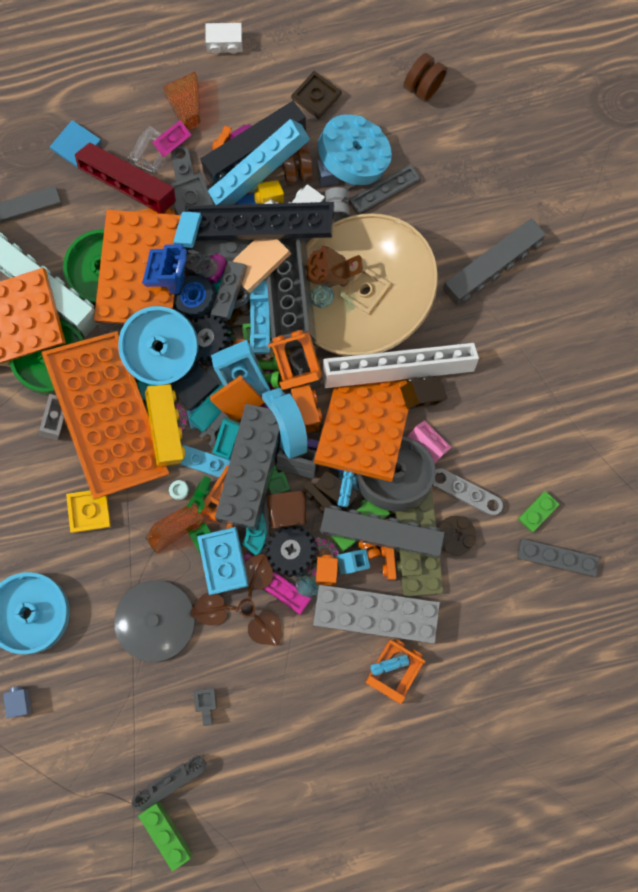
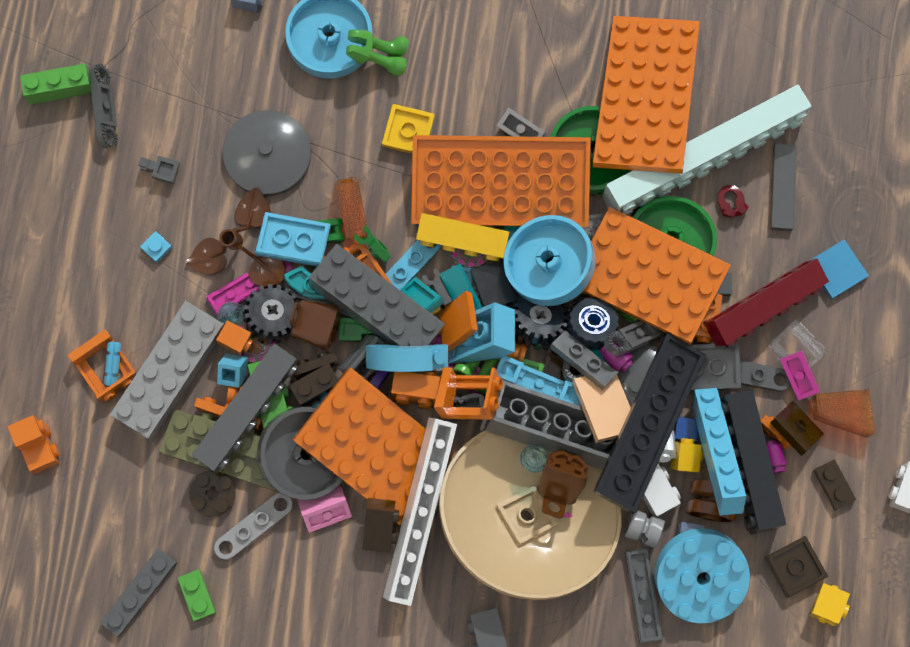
camera: 110 degrees right, 0 degrees up
(18, 550) = (395, 65): none -> bright green piece
(53, 229) = (741, 206): none -> dark red piece
(166, 268) = (630, 297): blue piece -> none
(179, 490) = (390, 228): light aqua tile -> none
(187, 229) = (671, 341): medium azure tile -> none
(214, 126) = (797, 428): none -> dark brown plate
(244, 91) = (834, 484): none -> dark brown plate
(275, 677) = (156, 247): none -> medium azure plate
(334, 62) = (830, 605): none -> yellow head
(346, 488) = (306, 390): medium azure axle -> none
(484, 697) = (33, 440): none -> orange brick

